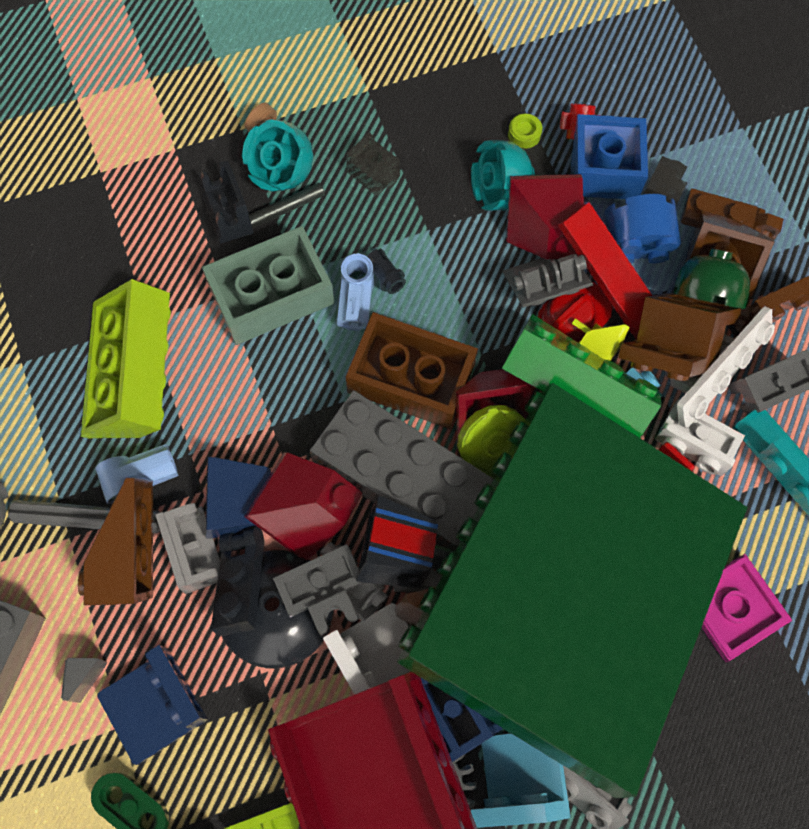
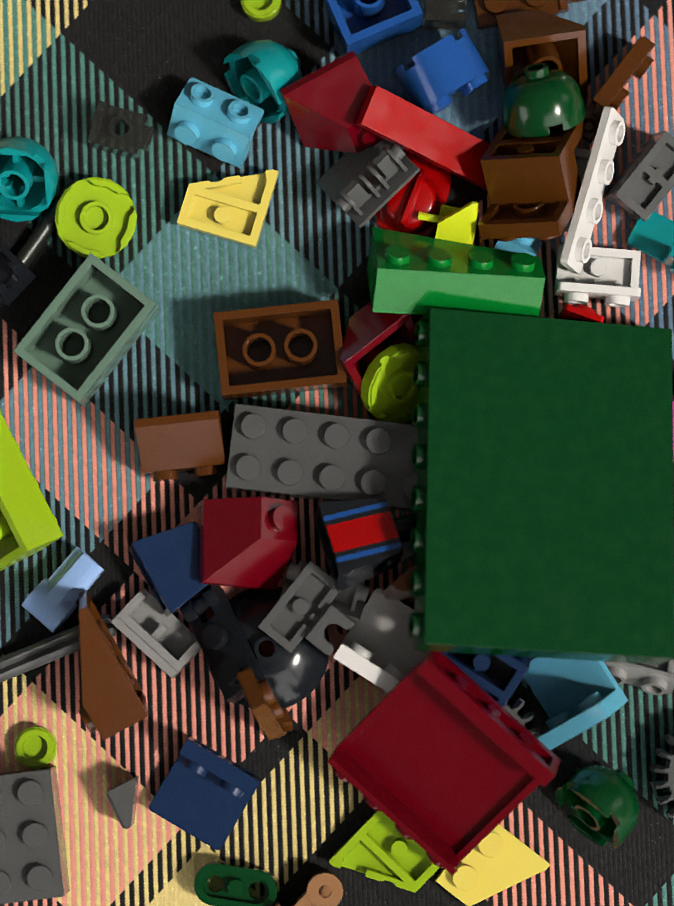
camera: 25 degrees left, 15 degrees up
(38, 593) = (36, 747): none -> lime tile
(239, 649) = (264, 705): none -> reddish brown hinge
(293, 401) = (181, 444): none -> reddish brown slope
(324, 213) = (95, 217): none -> lime tile
(355, 294) = (180, 294): light blue piece -> none
(390, 277) = (195, 248): black pin -> none
(427, 254) = (229, 207): none -> light yellow wing
(447, 189) = (214, 122): none -> medium azure bracket

